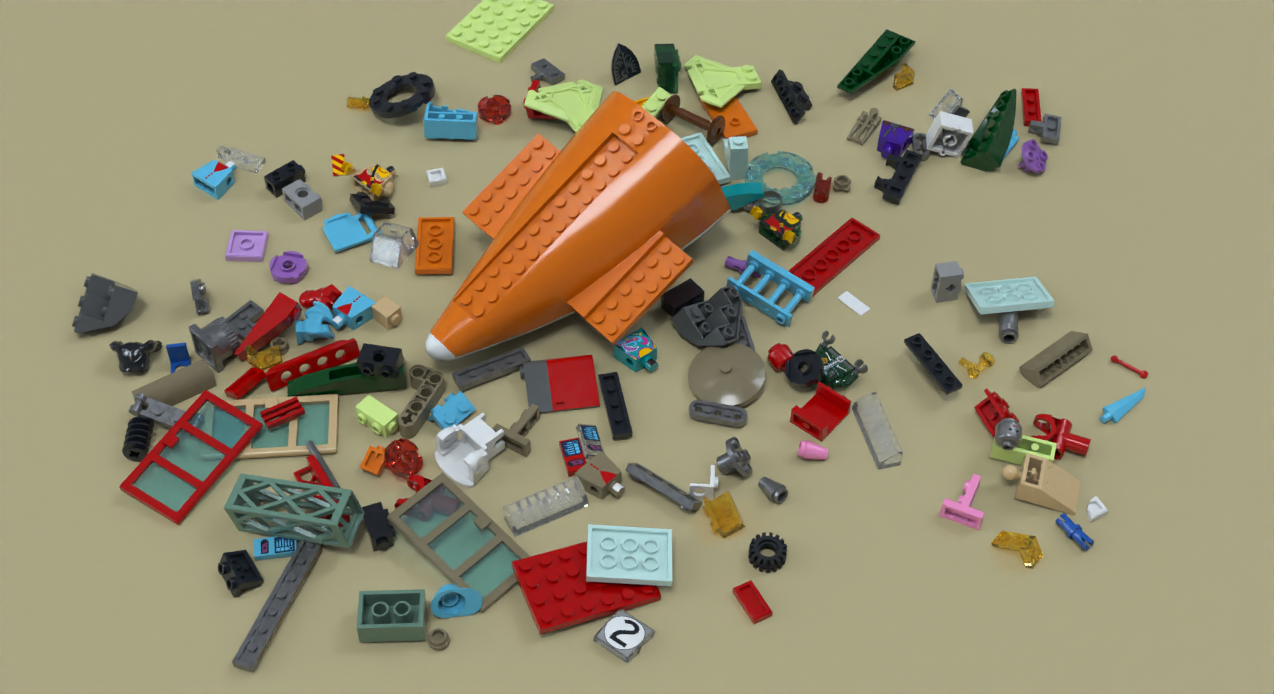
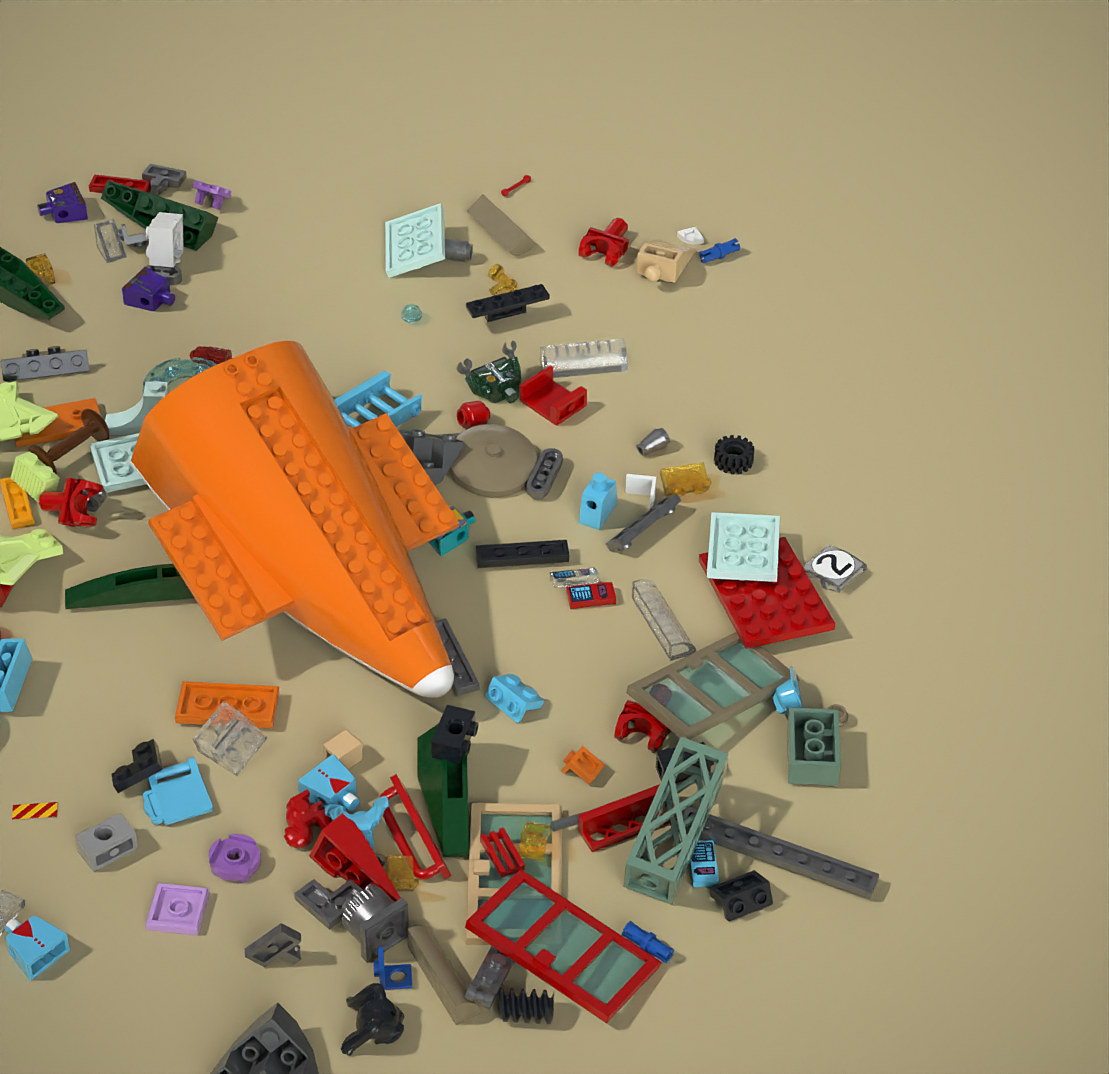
camera: 85 degrees left, 5 degrees down
(186, 522) = (648, 942): none -> blue pin
(245, 383) = (440, 898): red tile -> none
(283, 177) = (58, 862): black brick -> none
(293, 429) = (534, 840): none -> clear yellow bracket
(371, 180) = (94, 761): torso -> none
(377, 416) = (515, 762): yellowish green brick -> none
(395, 463) = (589, 733): clear red plate -> none
(429, 388) = (504, 720): dark tan beam -> none
(436, 177) = (93, 703): white tile -> none
(467, 458) = (580, 684): white piece -> none
(515, 437) = (560, 640): dark tan bracket -> none
(561, 383) = (483, 596): red door -> none
(601, 477) = (624, 568): dark tan torso -> none
(681, 449) = (598, 501): none -> medium azure torso
(734, 459) = (615, 461): flat silver plate -> none
(752, 602) = (791, 474): red tile -> none
(811, 375) = (505, 403): black plate -> none
(811, 450) = (604, 410): bright pink cone -> none
(835, 254) = (333, 368): red tile -> none
(842, 183) = (207, 339): dark tan plate -> none
(853, 303) = (393, 358): white sticker -> none
(875, 122) = (114, 309): dark tan piece -> none
(904, 171) = (221, 298): black hinge -> none
(911, 306) = (411, 313): none -> clear light blue plate
(946, 281) = (391, 276): light grey brick -> none
(961, 511) = (682, 311): bright pink bracket -> none
(991, 77) = (64, 204): none -> dark purple torso
(993, 410) = (574, 273): red bracket -> none
(1008, 434) = (623, 254): flat silver head -> none
(1025, 544) = (733, 286): clear yellow bracket -> none
(1028, 445) = (623, 262): yellowish green brick -> none
(1119, 408) = (571, 202): medium azure bar -> none

